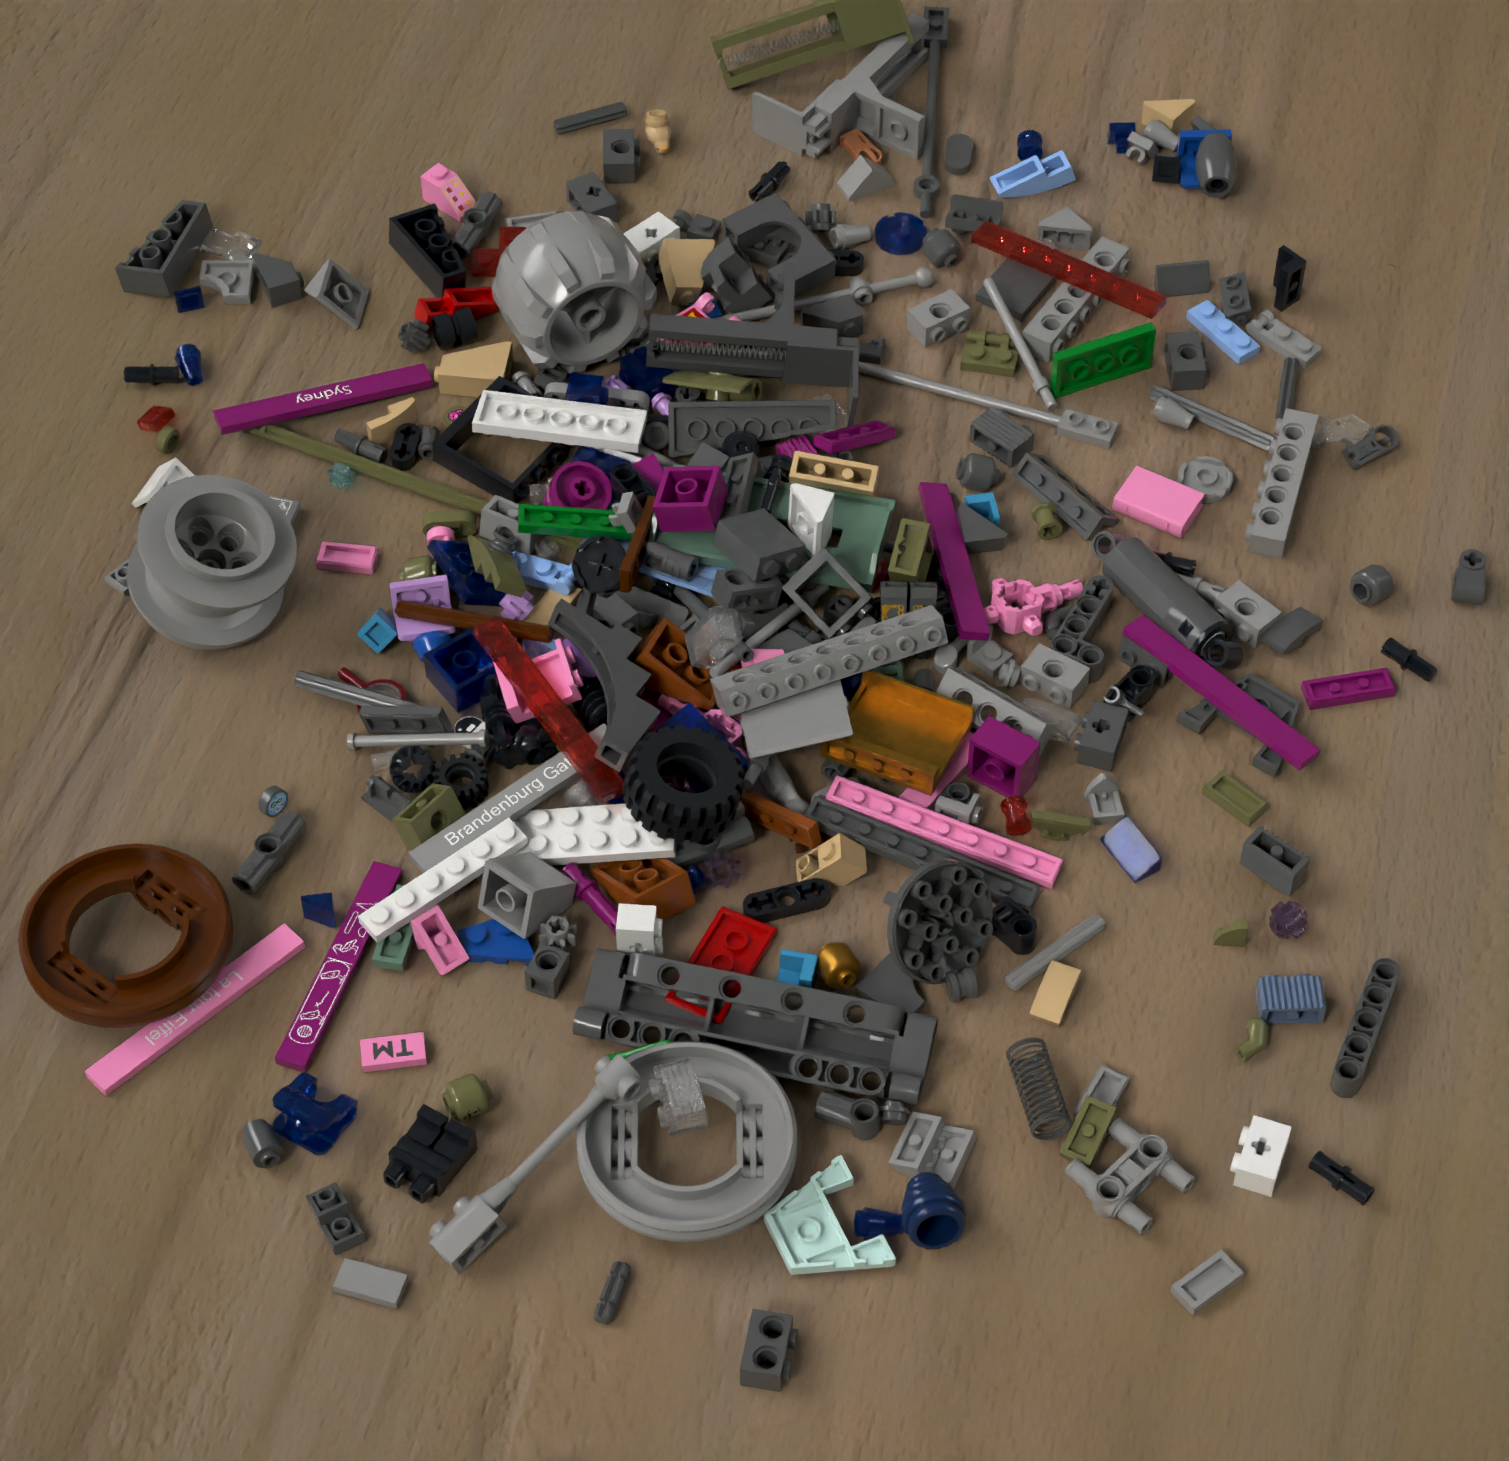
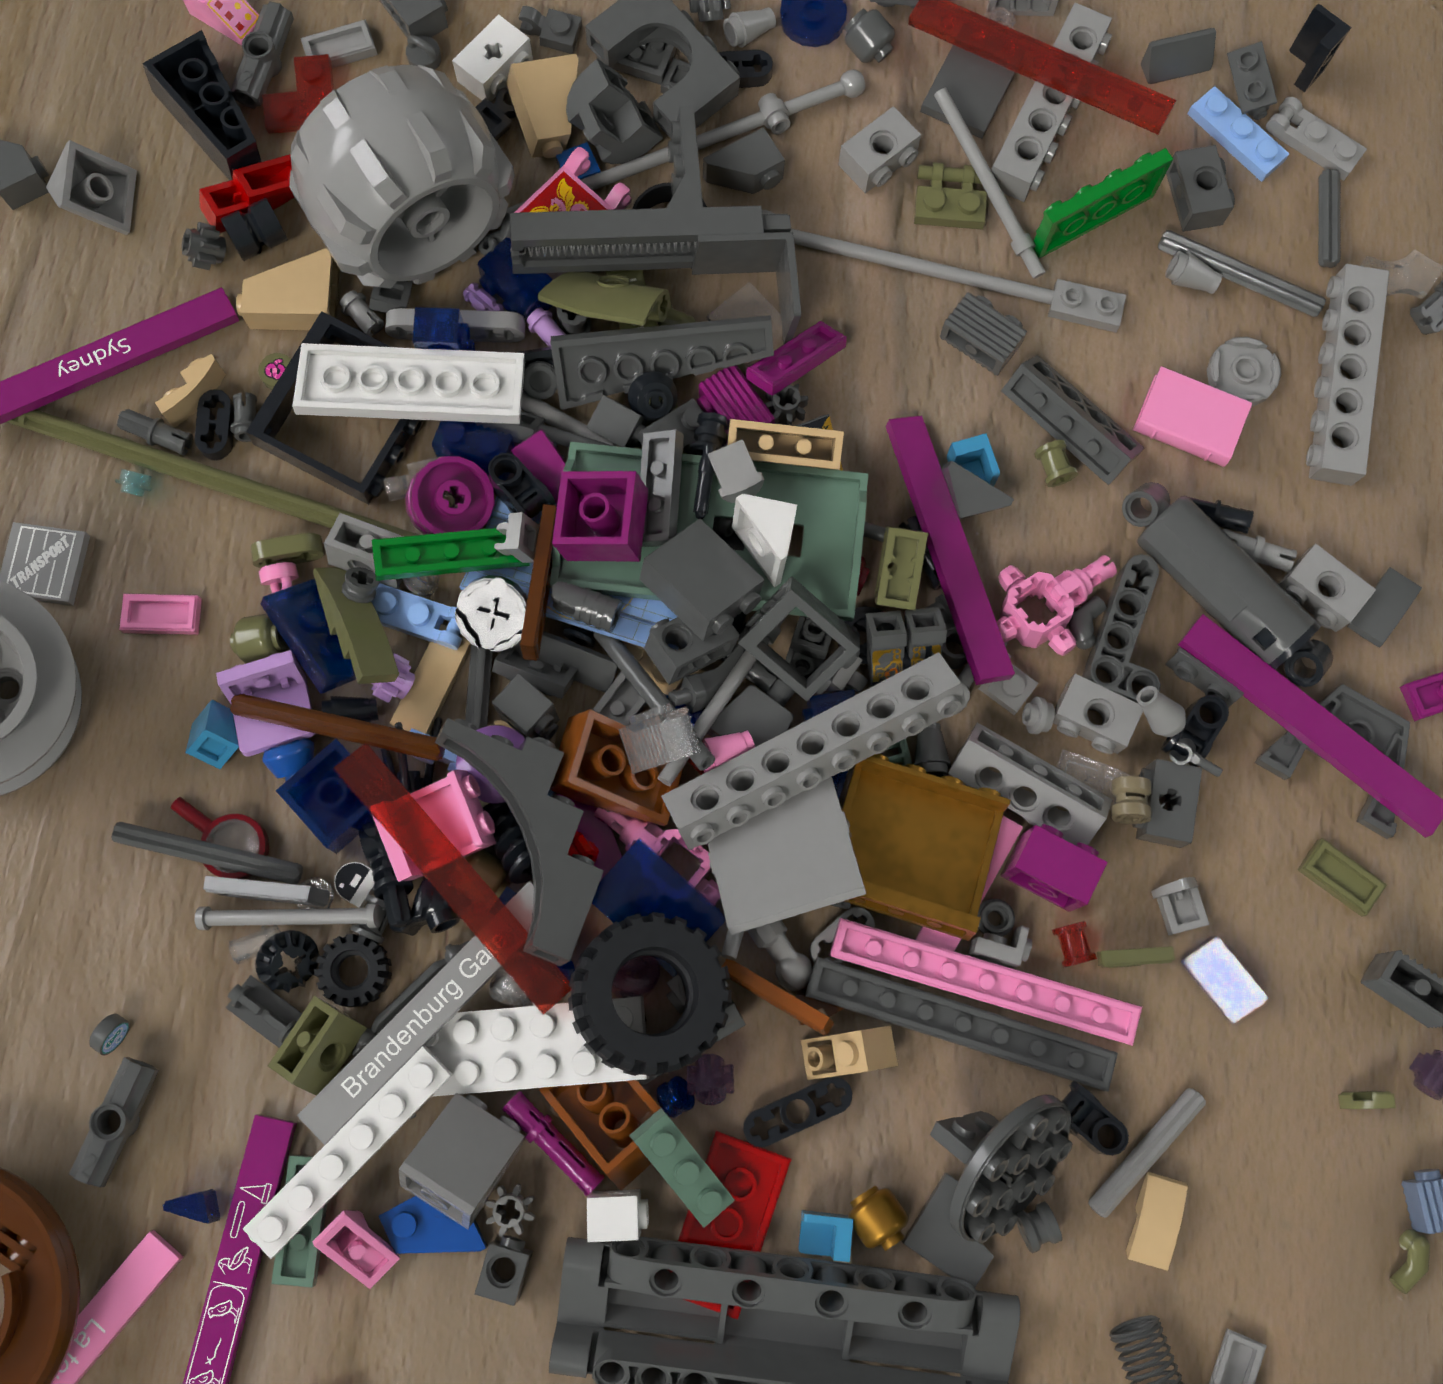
camera: 10 degrees left, 25 degrees up
(692, 907) = (682, 1167): none -> sand green plate
(789, 475) = (735, 471): none -> light grey tile
(872, 351) = (799, 207): dark grey tile -> none
(977, 472) = (959, 395): dark grey head -> none
(1069, 721) = (1131, 800): none -> dark tan wheel
(1100, 669) = (1161, 712): none -> light grey cone

